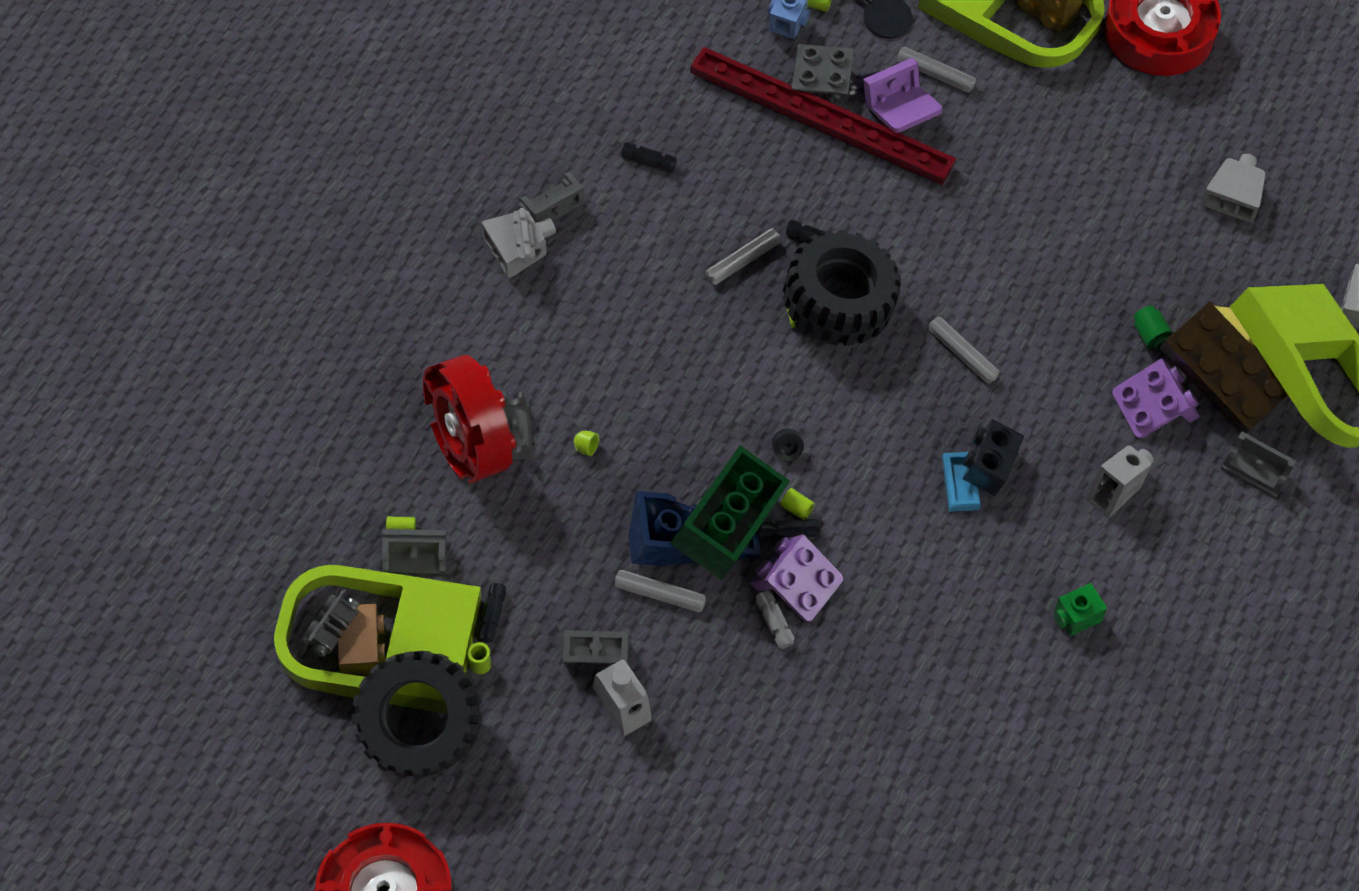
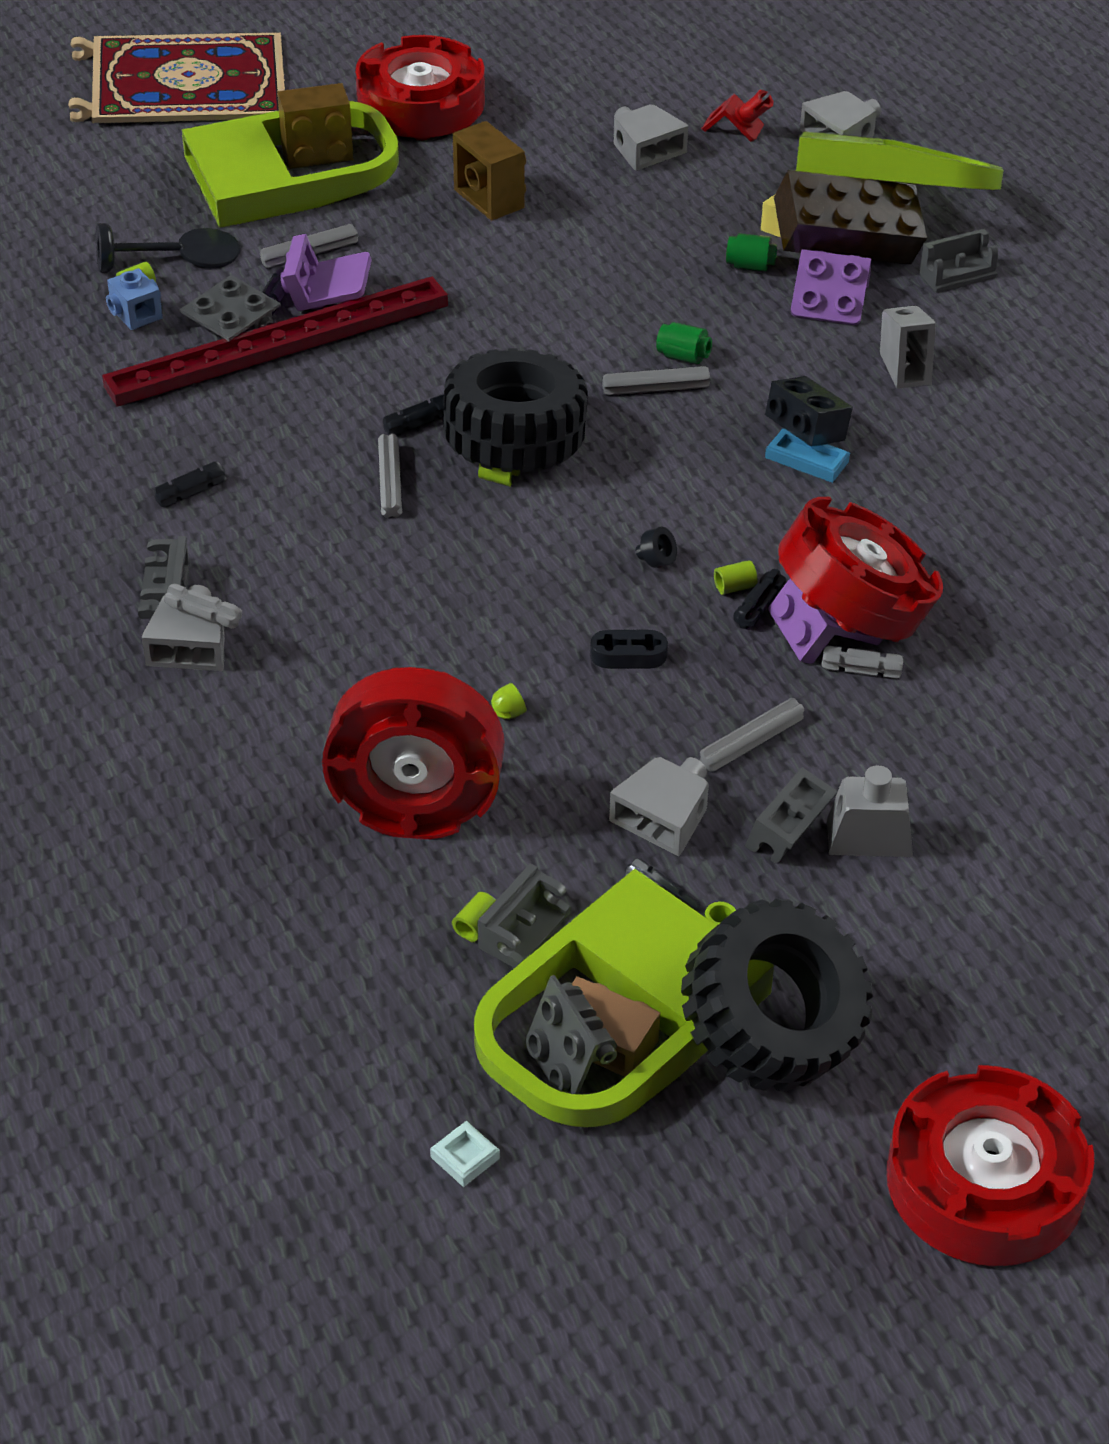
camera: 55 degrees left, 15 degrees down
(231, 622) = (465, 1153): none -> light aqua tile
(560, 573) = (662, 802): none -> light grey torso
(654, 525) = (700, 679): dark blue wedge -> none
(680, 484) = (628, 649): none -> black beam
(730, 512) = (722, 612): dark green brick -> none
(829, 570) = (859, 570): none -> red piece
(1014, 343) = (684, 342): none -> green brick
(1080, 609) = (1028, 440): green brick -> none
(1093, 121) = (489, 170): none -> pearl gold brick
(1316, 233) = (742, 115): none -> red bracket

